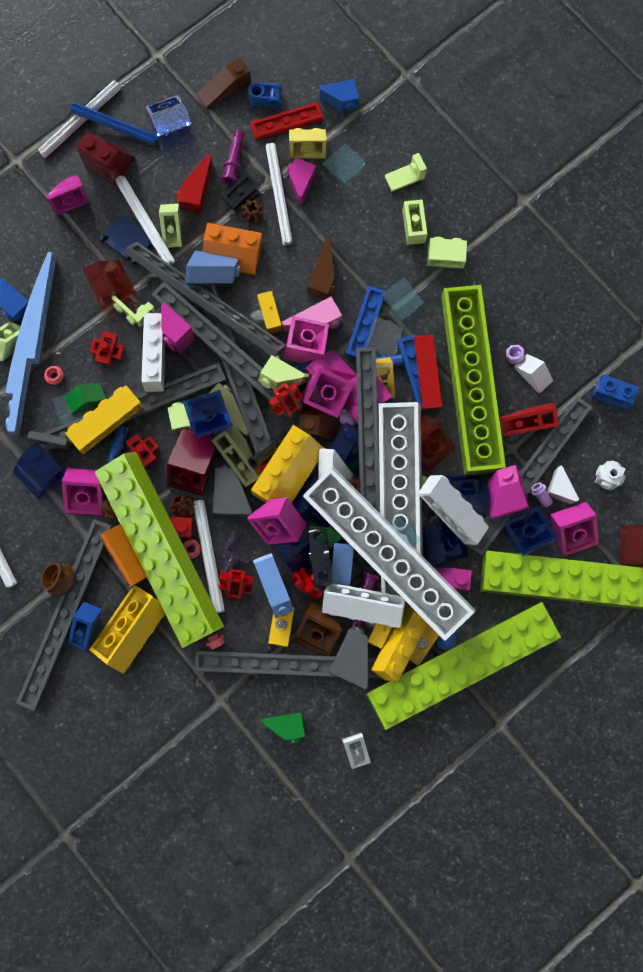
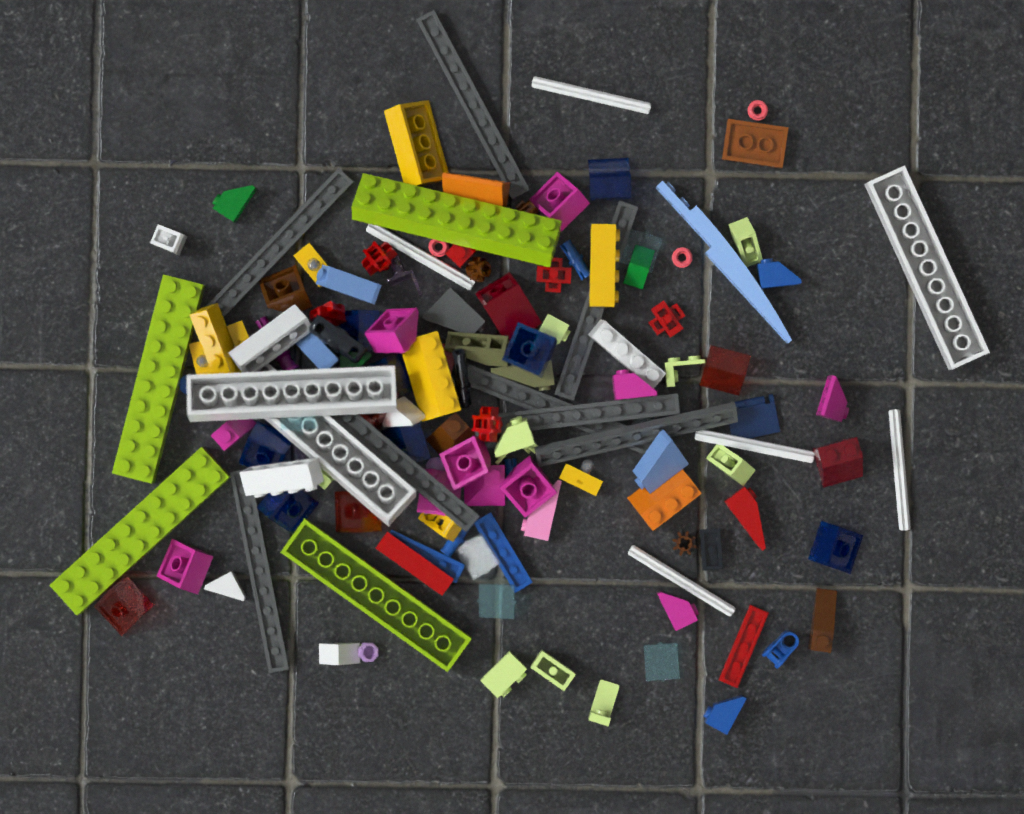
camera: 140 degrees right, 10 degrees up
(50, 440) = (624, 207): dark grey tile -> none
(57, 578) = (505, 121): reddish brown piece -> none
(84, 625) = (449, 112): blue slope -> none
(113, 123) = (866, 493): blue axle -> none
(215, 640) = (346, 203): coral plate -> none
(232, 164) = (741, 562): magenta pin -> none
(307, 143) = (705, 644): light yellow slope -> none
(322, 279) = (573, 552): reddish brown slope -> none
(352, 658) = (238, 296): dark grey slope -> none
(506, 492) = (259, 535): dark pink slope -> none
(529, 420) = (303, 609): red slope -> none
(529, 532) = (212, 524): clear blue slope -> none
(540, 492) = (239, 564): lavender pin -> none
(605, 478) = (209, 634): white brick -> none
(615, 392) = (264, 703): blue brick -> none

